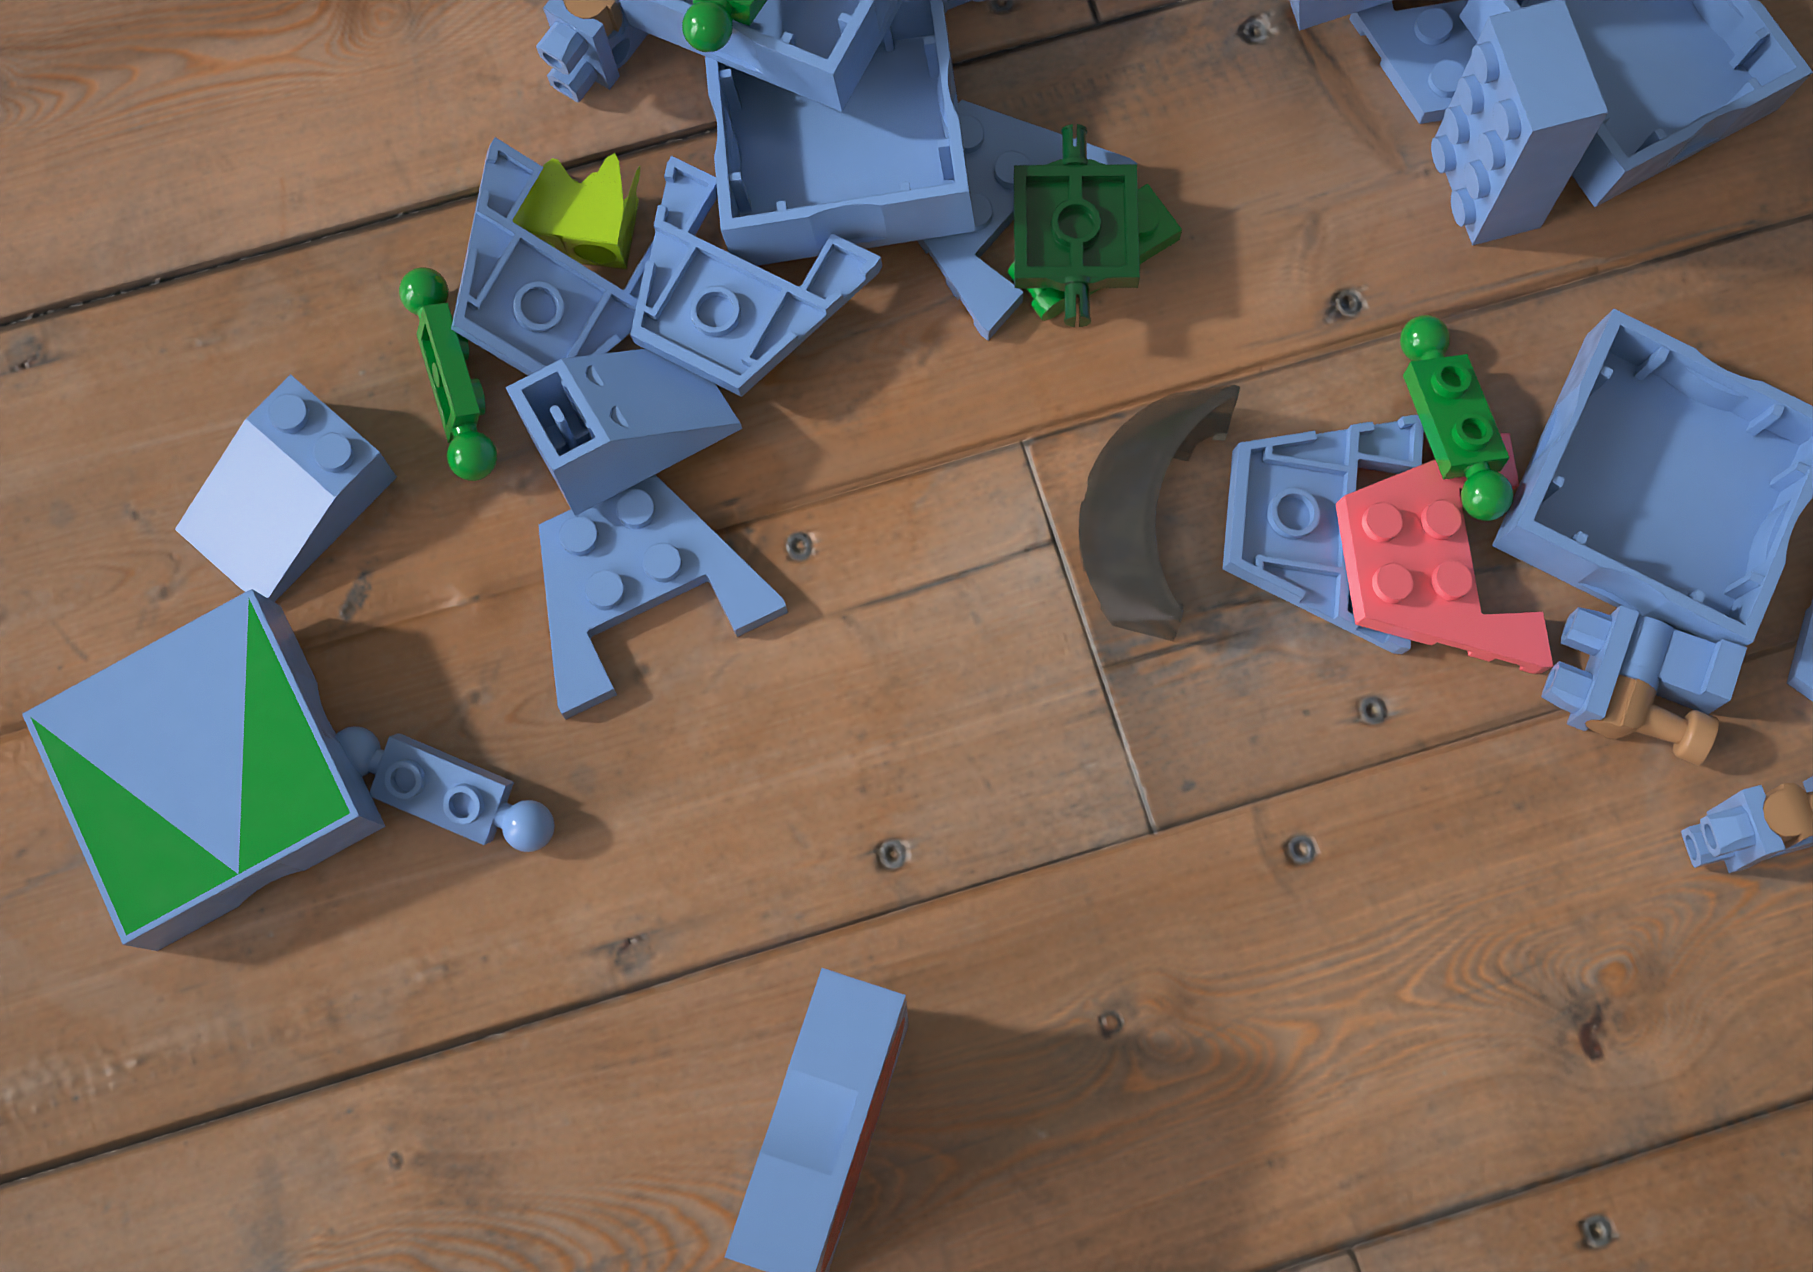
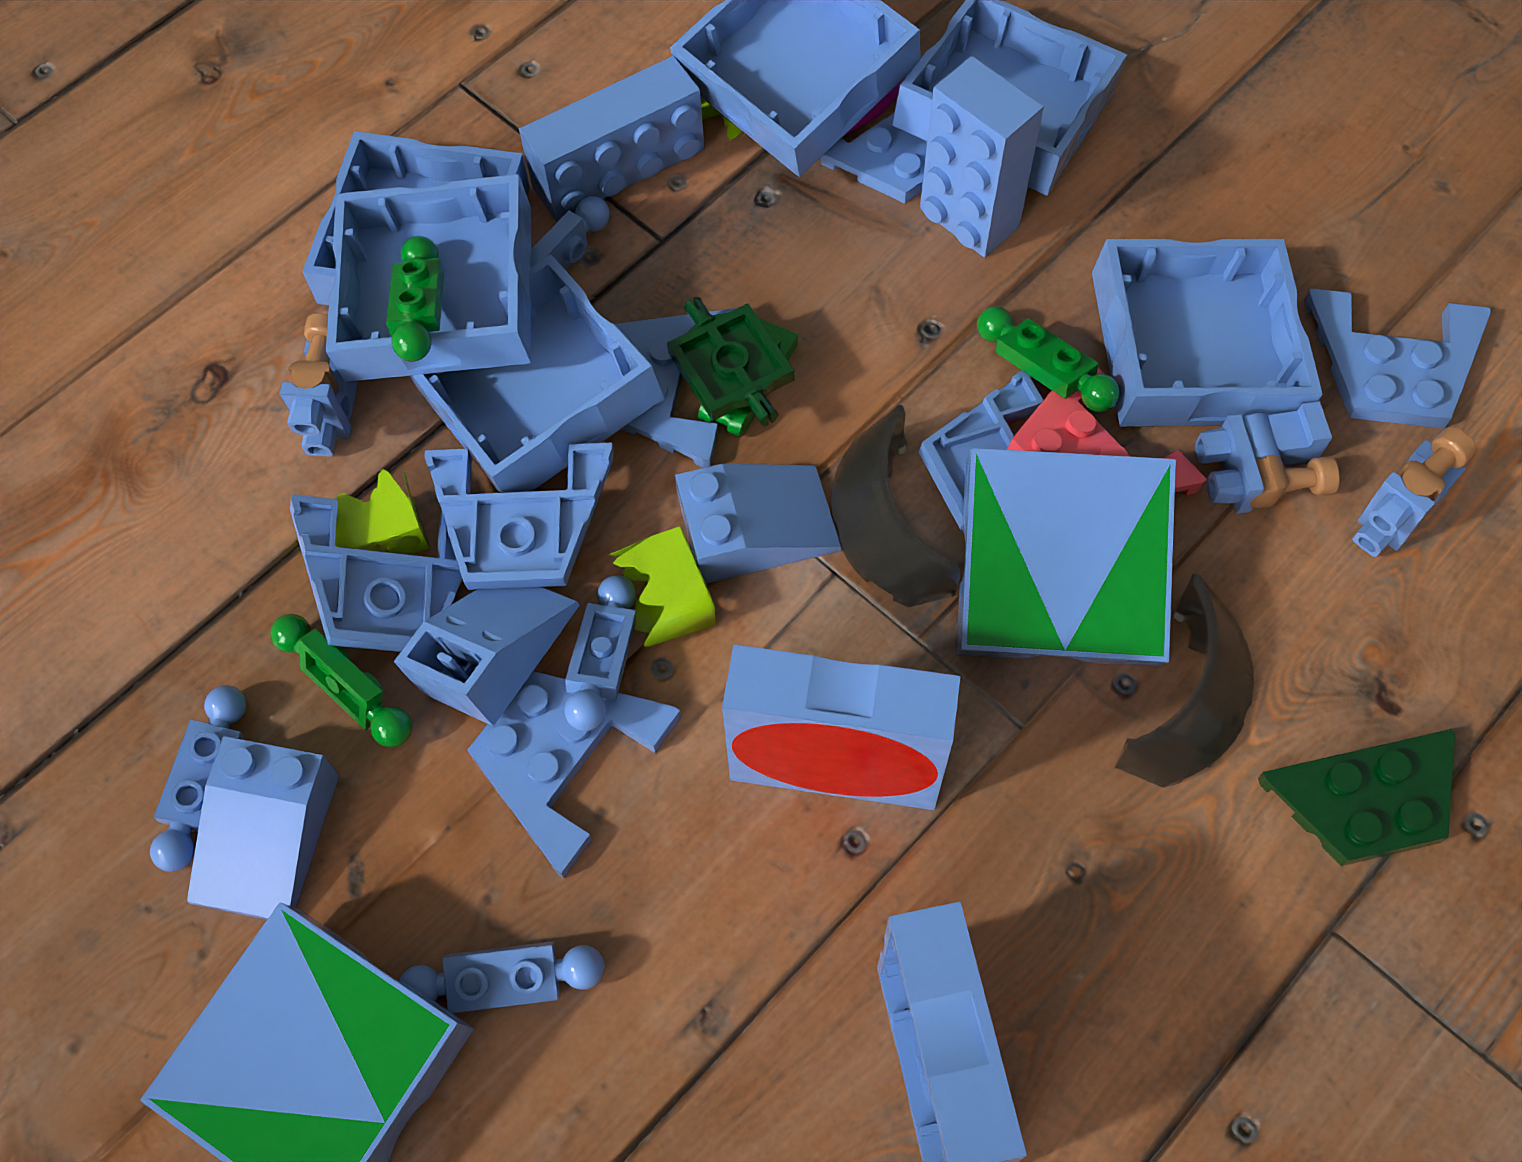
camera: 30 degrees left, 10 degrees down
(223, 412) = (184, 790): none -> medium blue plate
(736, 494) = (600, 653): none -> medium blue plate
(855, 471) = (675, 592): none -> lime piece
(919, 725) = (838, 726): none -> medium blue tile
(998, 428) = (754, 517): none -> medium blue slope
(1311, 672) = (1067, 557): none -> tile
(1388, 928) = (1216, 708): none -> clear smoke windscreen
(1496, 1133) = (1372, 797): none -> dark green wing

